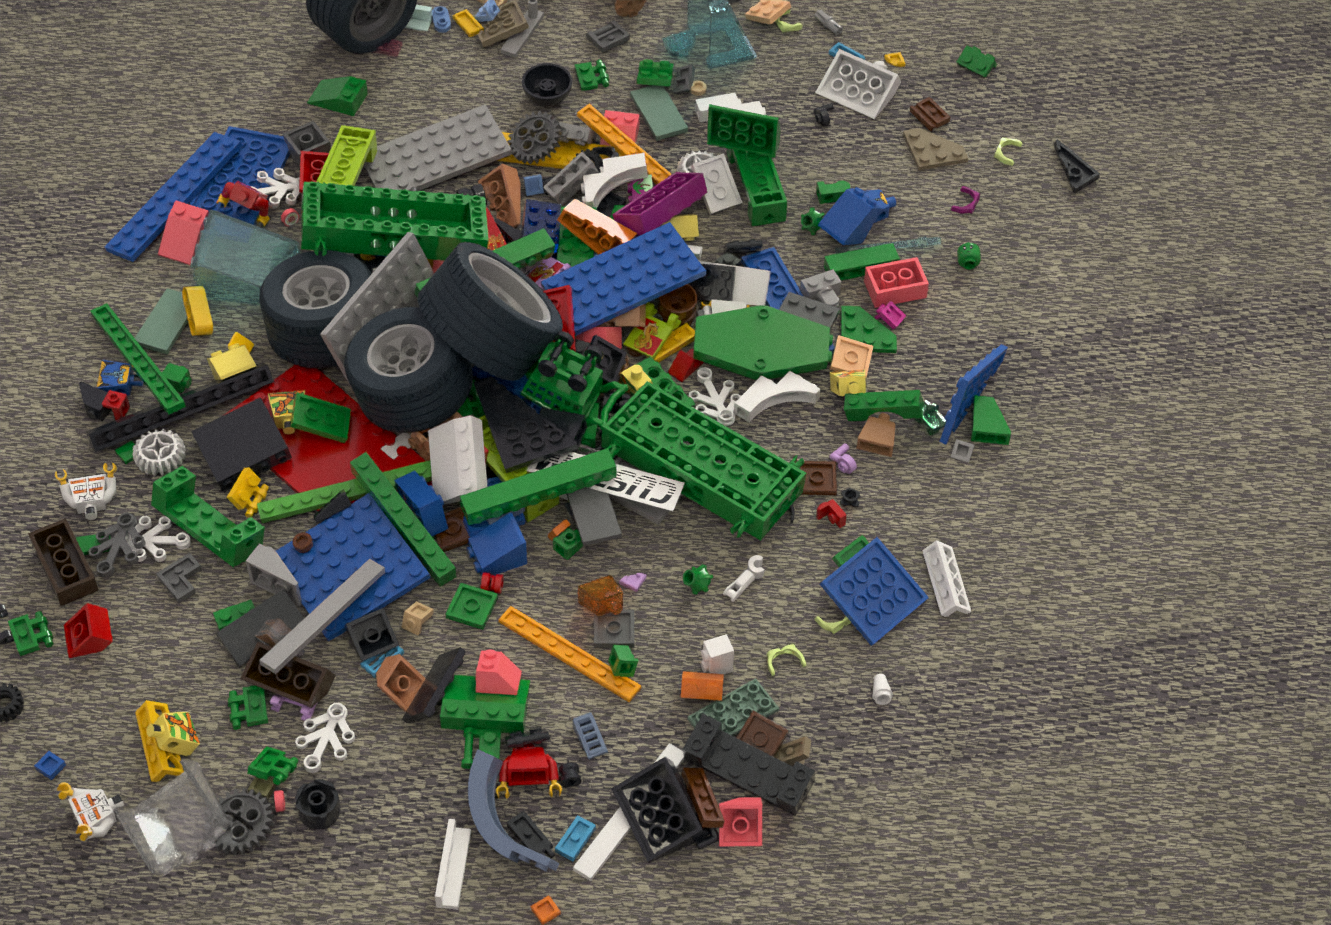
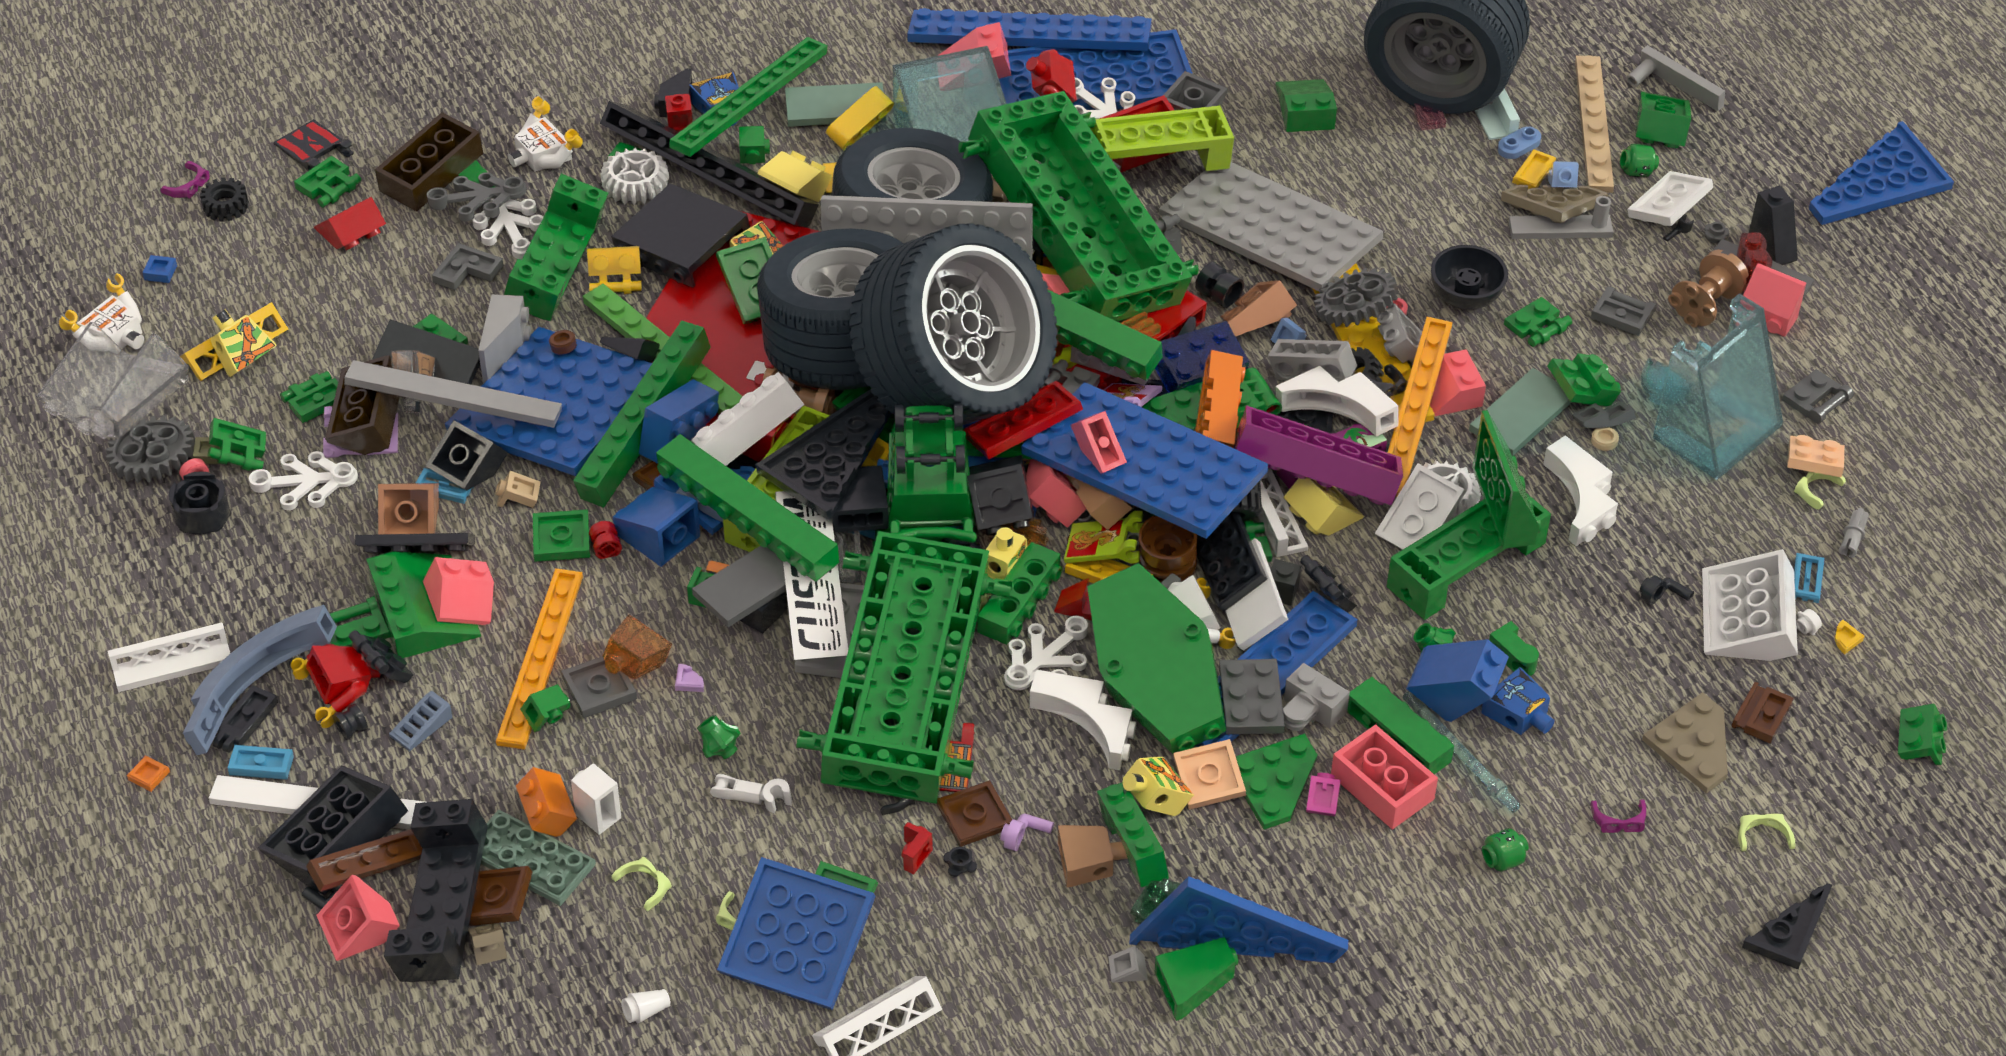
camera: 65 degrees right, 5 degrees down
(608, 288) = (1099, 442): none -> coral slope

